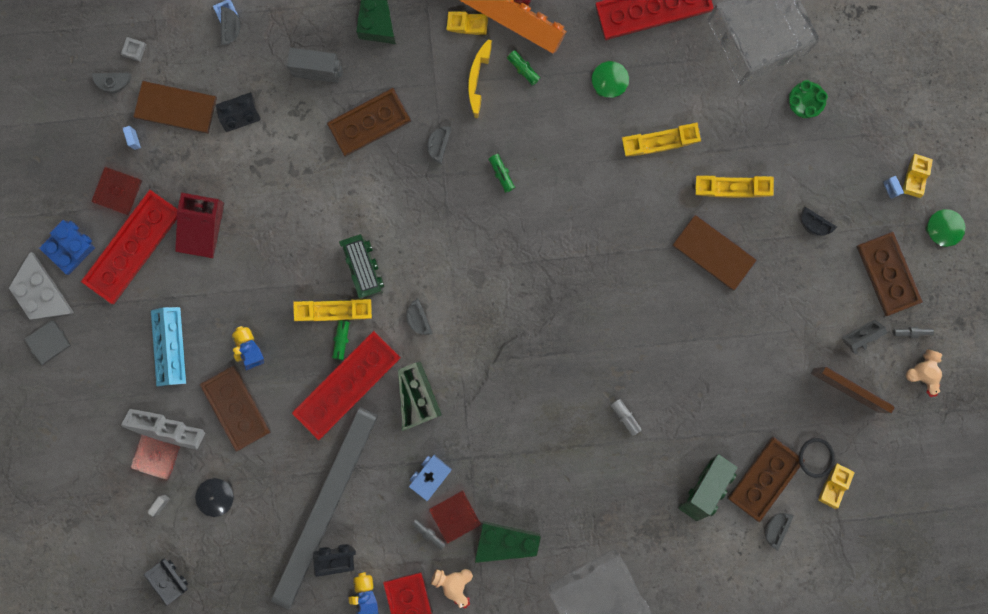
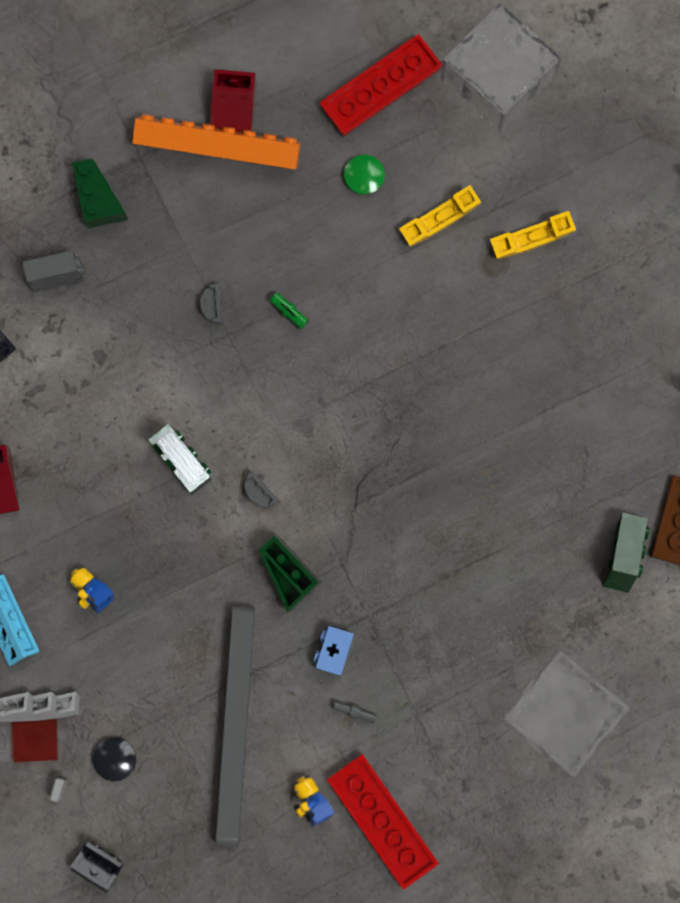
camera: 20 degrees left, 5 degrees down
(235, 408) = (101, 658): reddish brown tile -> none
(332, 310) = (167, 516): yellow slope -> none
(333, 561) = (266, 776): black bracket -> none
(341, 340) = (186, 544): green pin -> none
(346, 385) = (210, 589): red plate -> none
(368, 122) = (130, 309): reddish brown tile -> none
(453, 585) = (401, 754): light nougat animal -> none
(455, 516) = (375, 683): clear red plate -> none
(467, 23) = (194, 172): yellow slope -> none
(481, 57) = (224, 199): yellow slope -> none
(505, 543) = (438, 688): dark green wedge -> none
(523, 67) = (270, 195): green pin -> none
(626, 417) = (513, 512): light grey axle -> none
(714, 252) = (539, 310): reddish brown tile -> none
(807, 99) = (573, 121): green dish -> none
(815, 223) = (631, 243): black plate -> none

